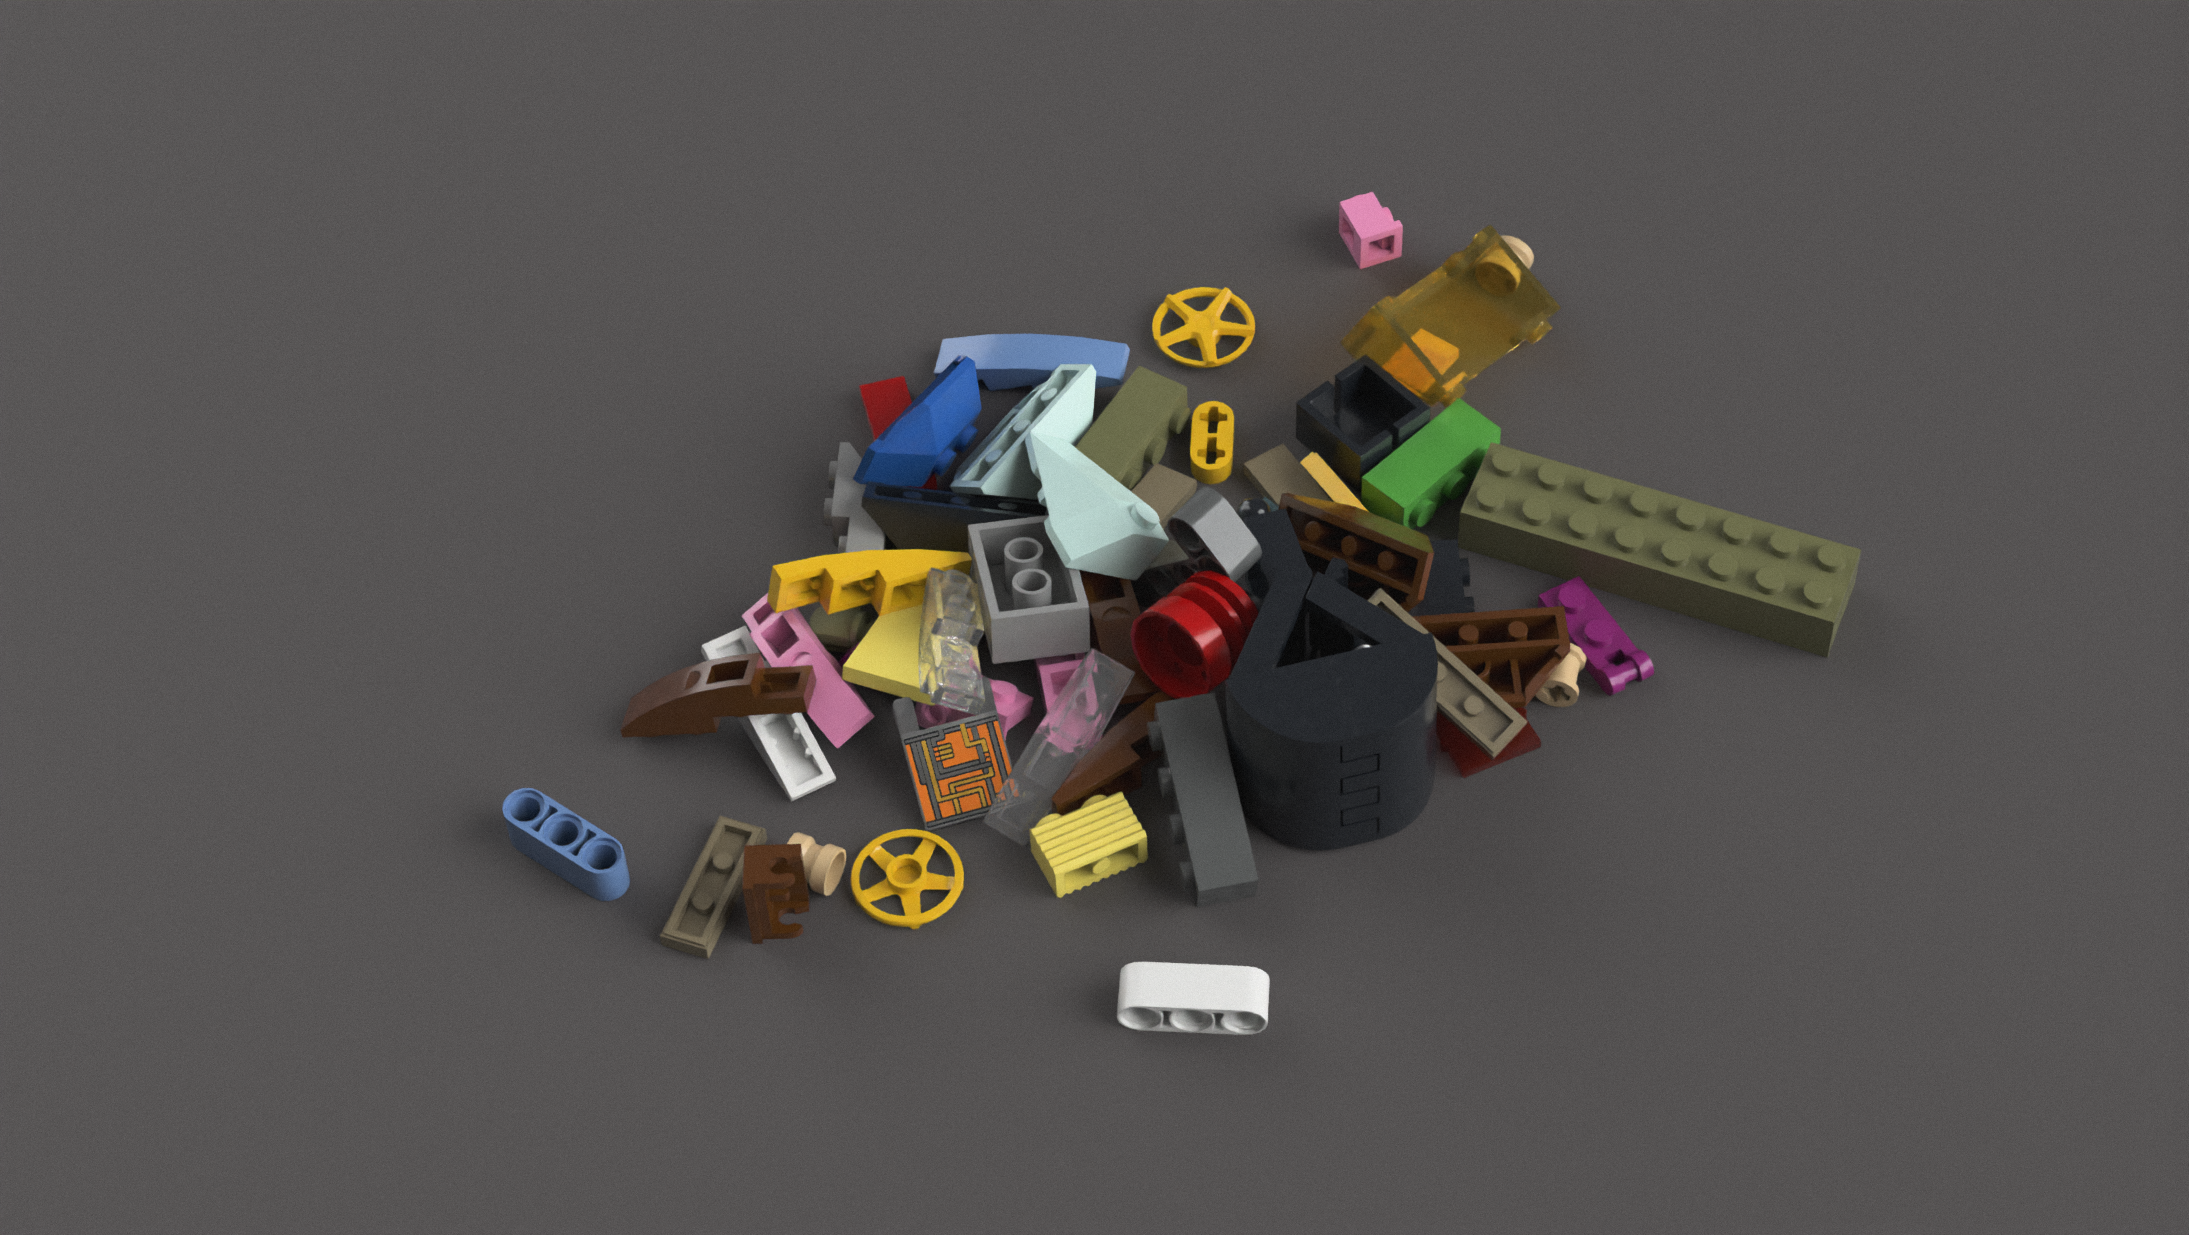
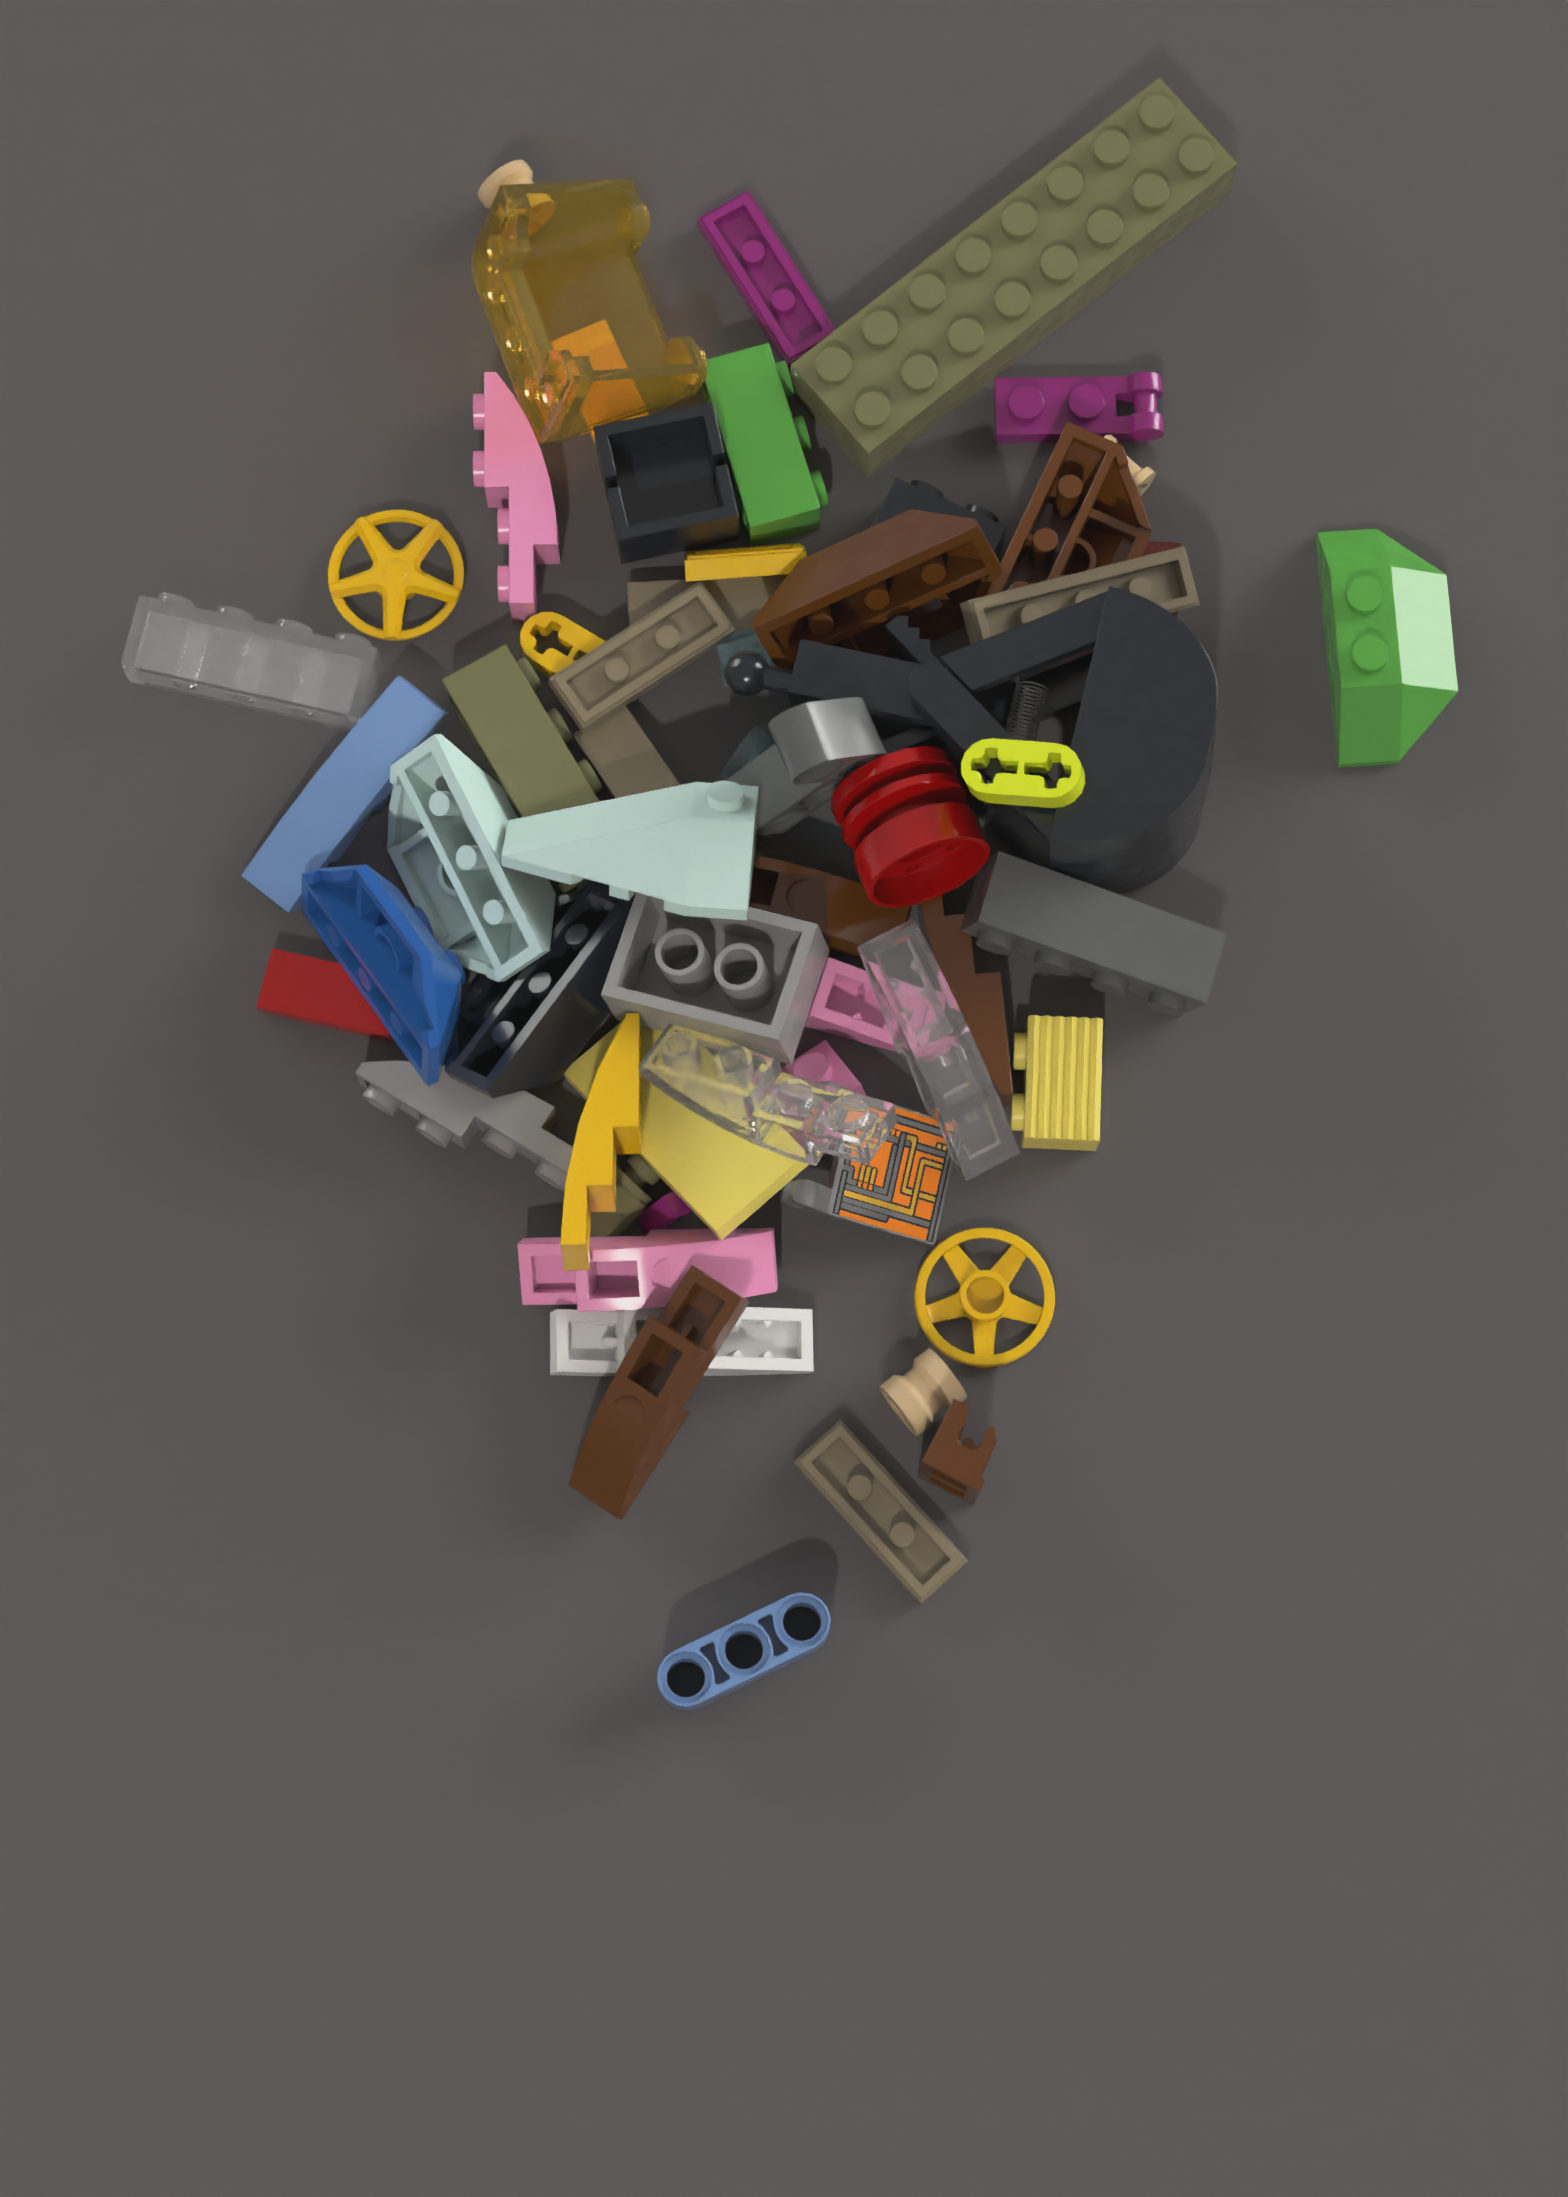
camera: 65 degrees left, 25 degrees up
(1088, 271) = (251, 662): none -> clear brick
(1193, 998) = (1316, 1078): white beam -> none
(1229, 465) = (641, 657): none -> dark tan tile
(1267, 638) = (1023, 758): none -> neon yellow beam
(1298, 367) = (520, 488): none -> bright pink slope
(1369, 230) = (369, 315): bright pink brick -> none
(1547, 889) = (1383, 644): none -> bright green wedge
(1563, 415) = (765, 277): none -> magenta tile

